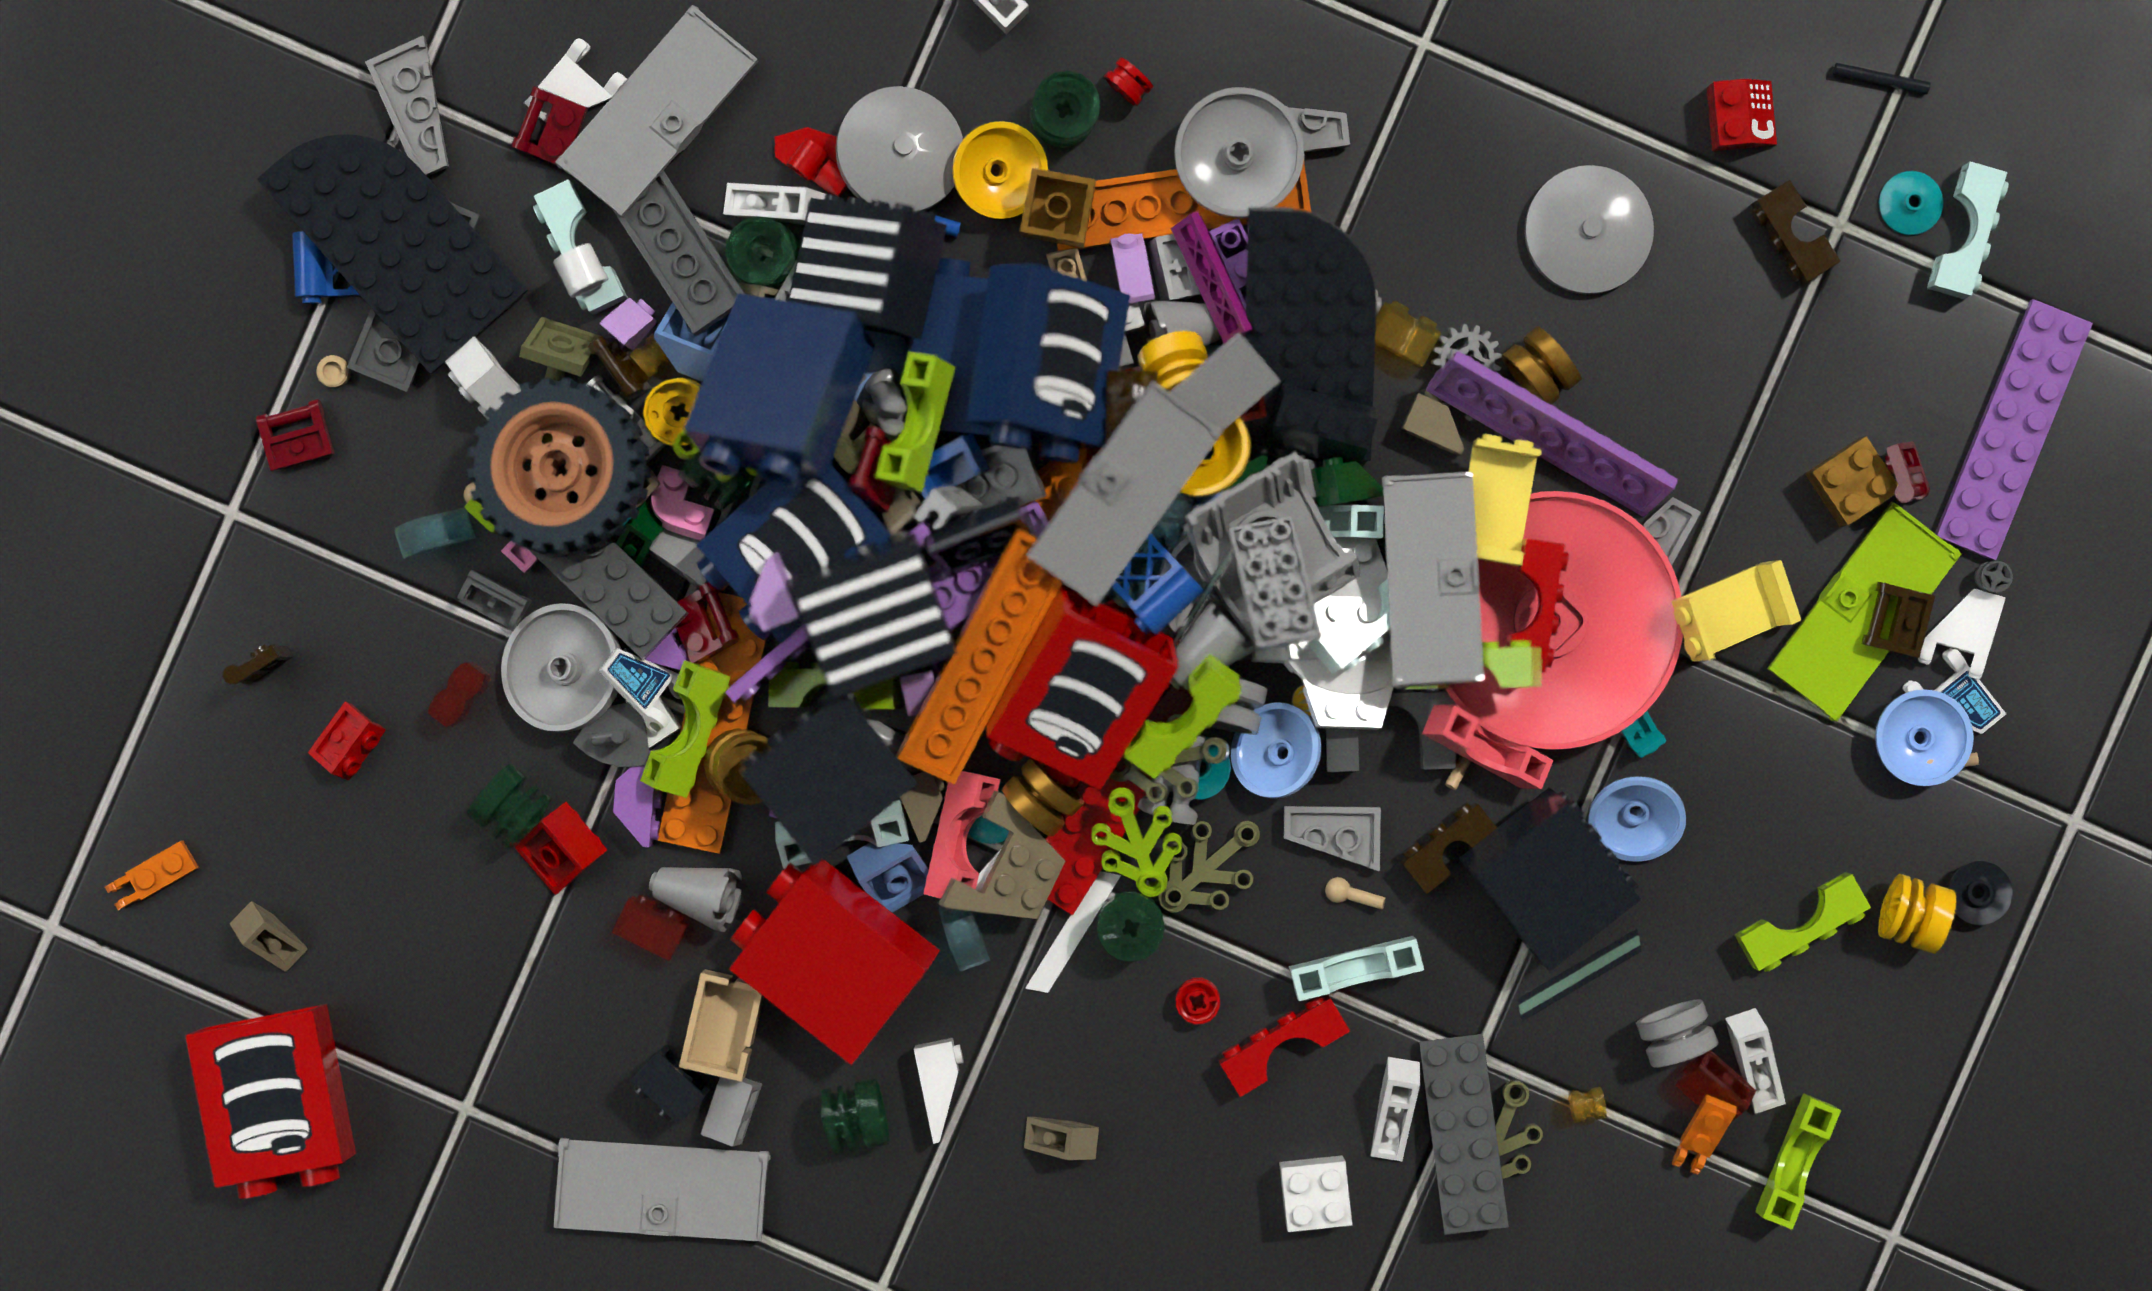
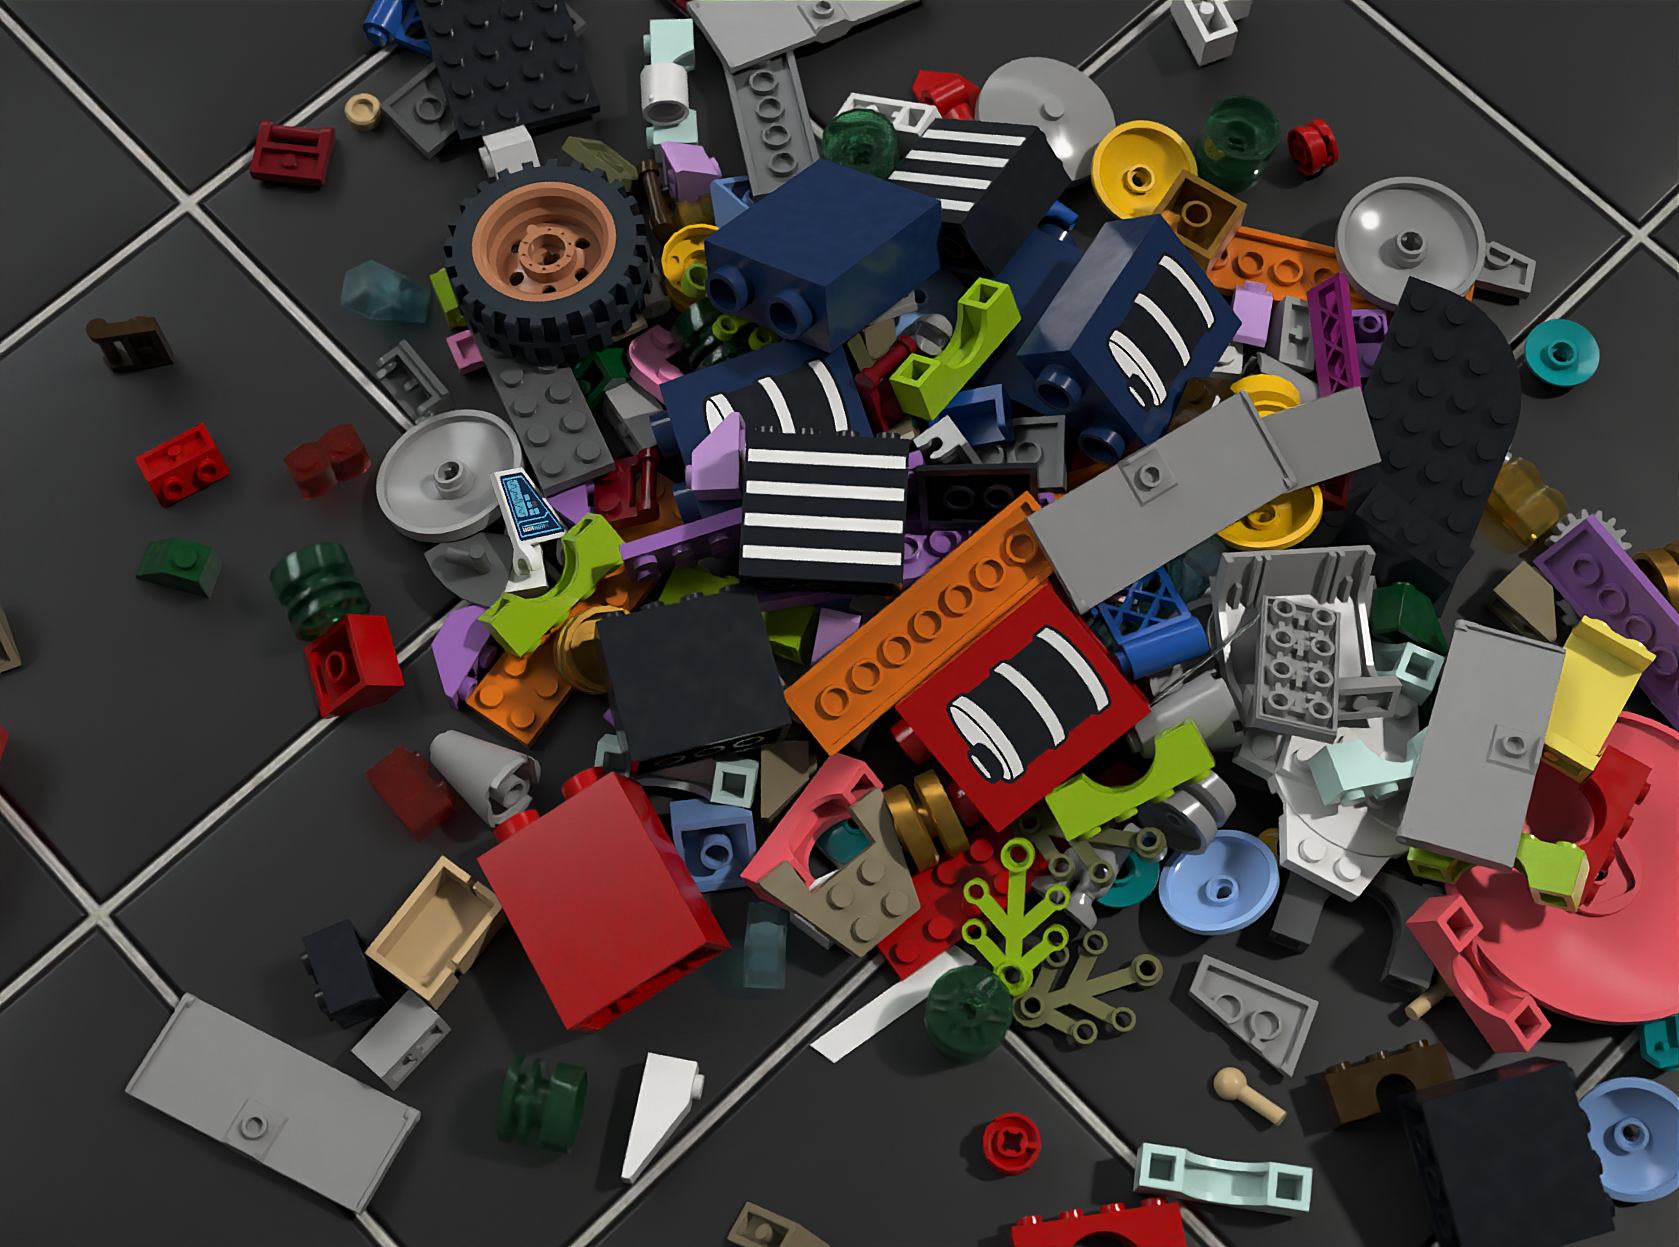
camera: 25 degrees right, 20 degrees down
(387, 825) = (180, 566): none -> dark green slope
(1404, 177) = (1570, 343): none -> teal dish

